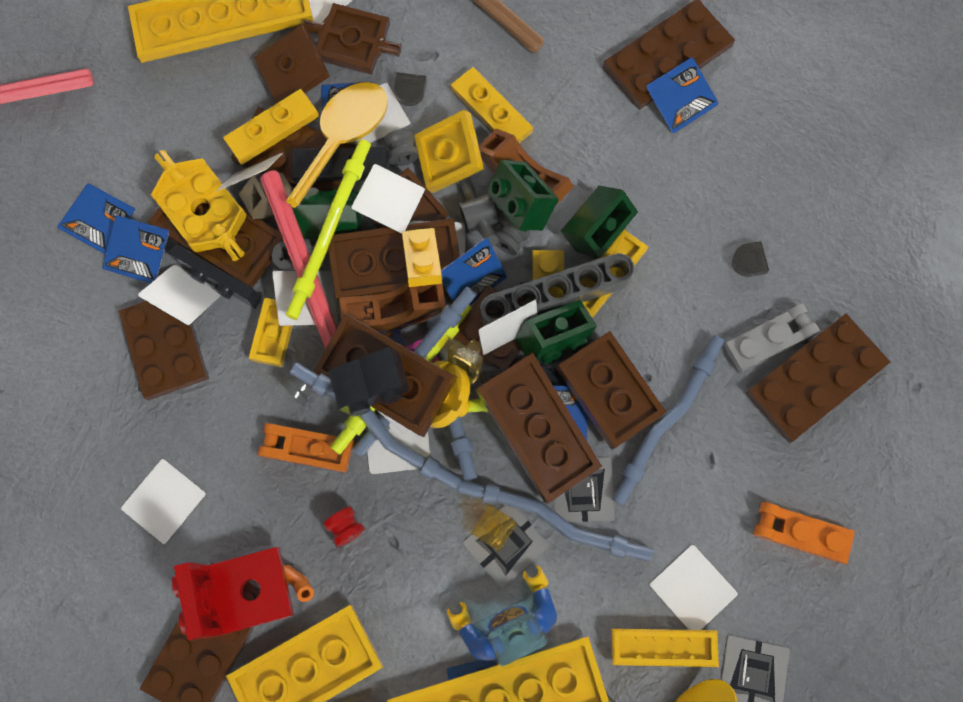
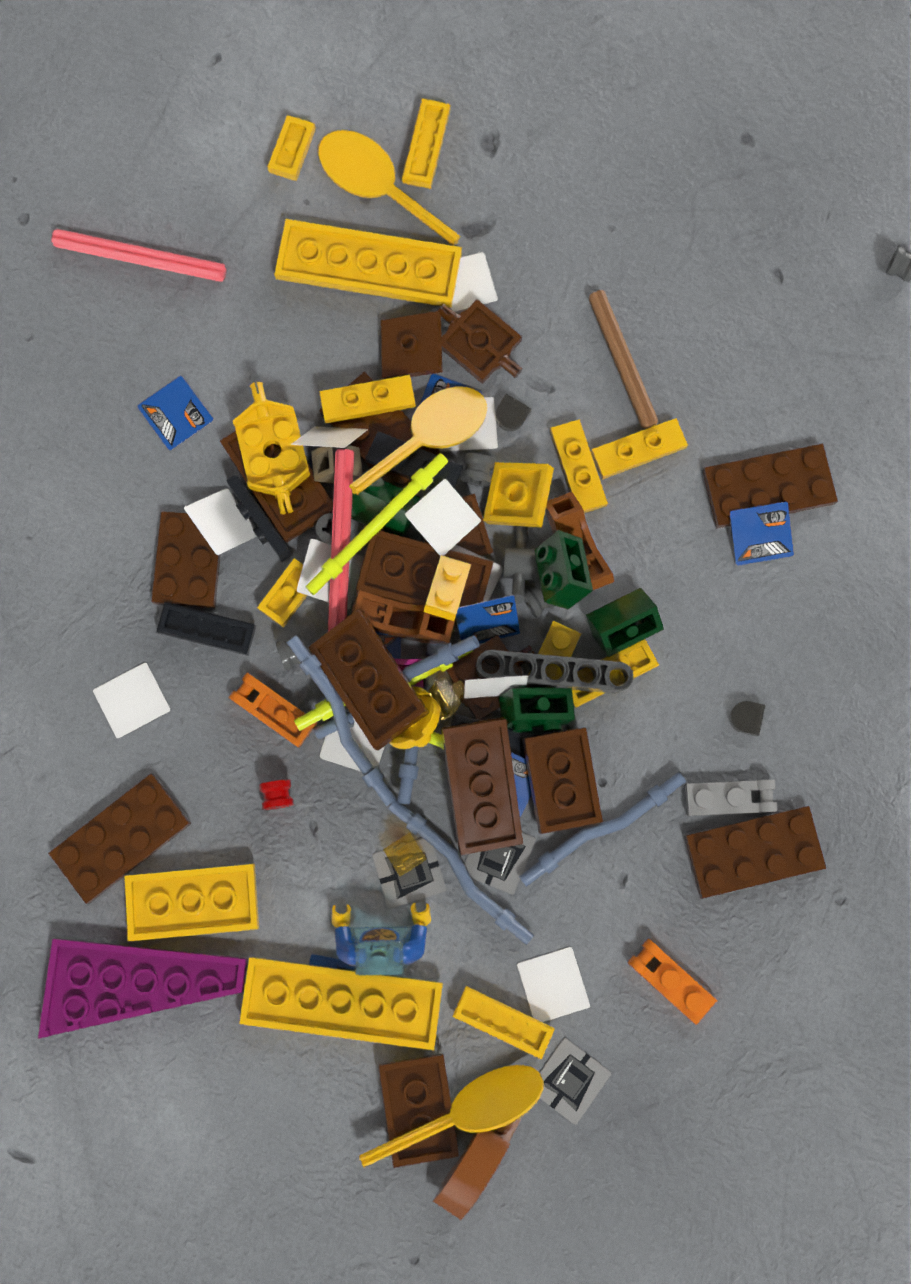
camera: 20 degrees right, 5 degrees up
(135, 249) = (198, 460): blue sticker -> none
(208, 400) = (206, 629): none -> black plate
(215, 599) = (143, 809): red bracket -> none
(300, 583) = (218, 824): orange arm -> none
(369, 381) = (351, 682): black brick -> none
(538, 70) = (639, 448): none -> yellow plate

